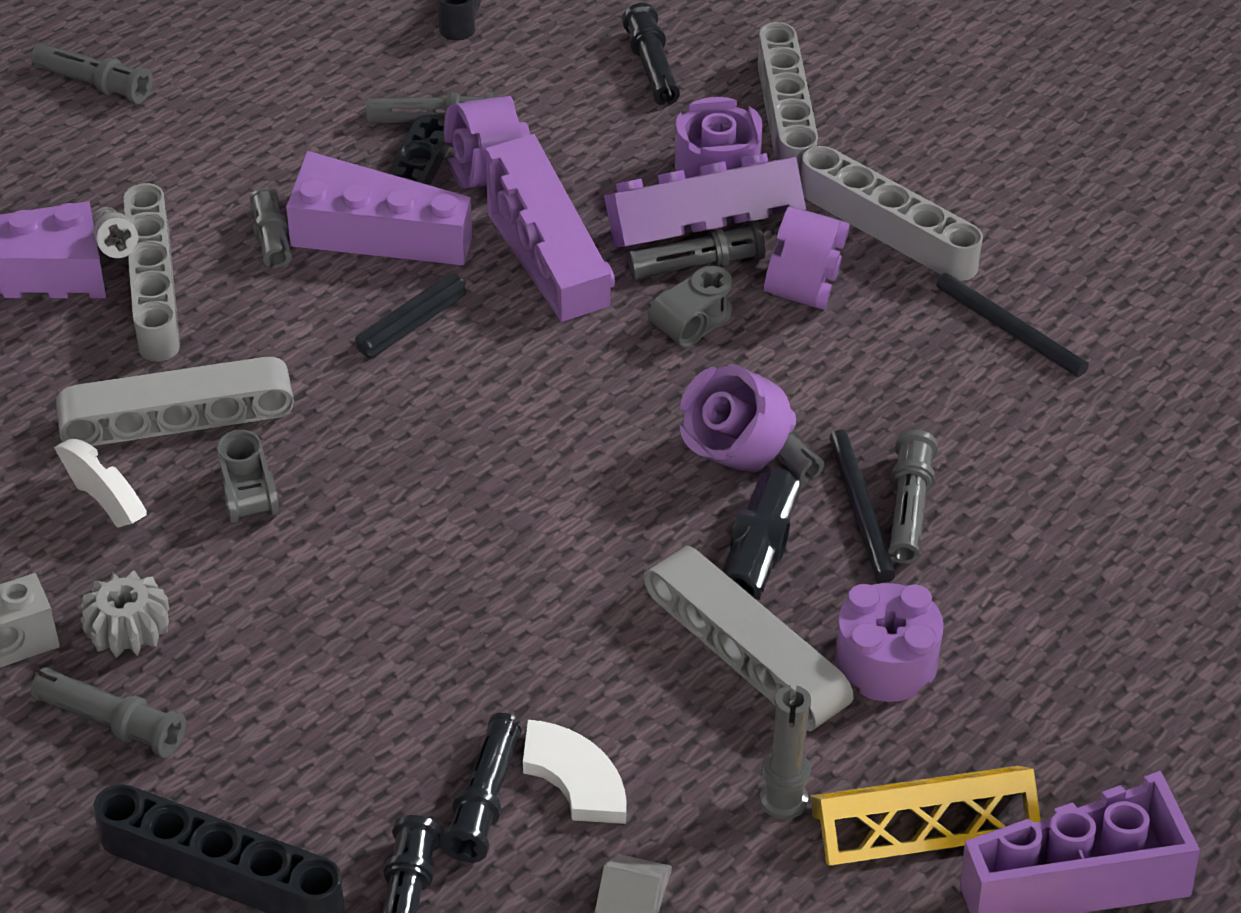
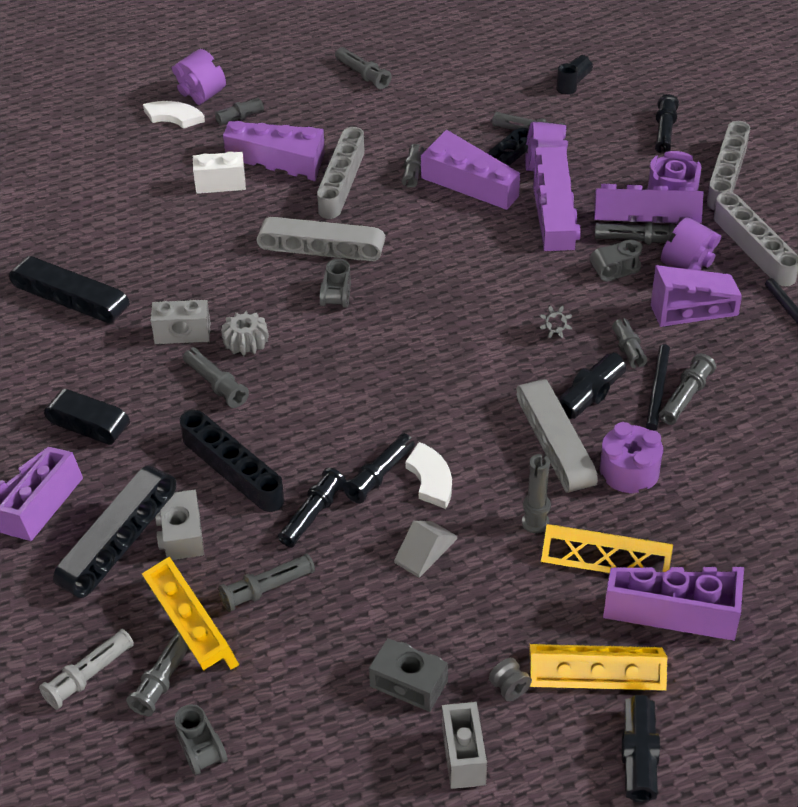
camera: 25 degrees right, 0 degrees up
(103, 484) = (264, 267): white tile -> none
(122, 228) = (321, 146): light grey pin -> none
(410, 315) = (464, 227): black axle -> none
(664, 440) = (558, 329): none -> dark grey gear
(736, 417) = (604, 320): medium lavender brick -> none
(845, 336) = (693, 295): none -> medium lavender wedge

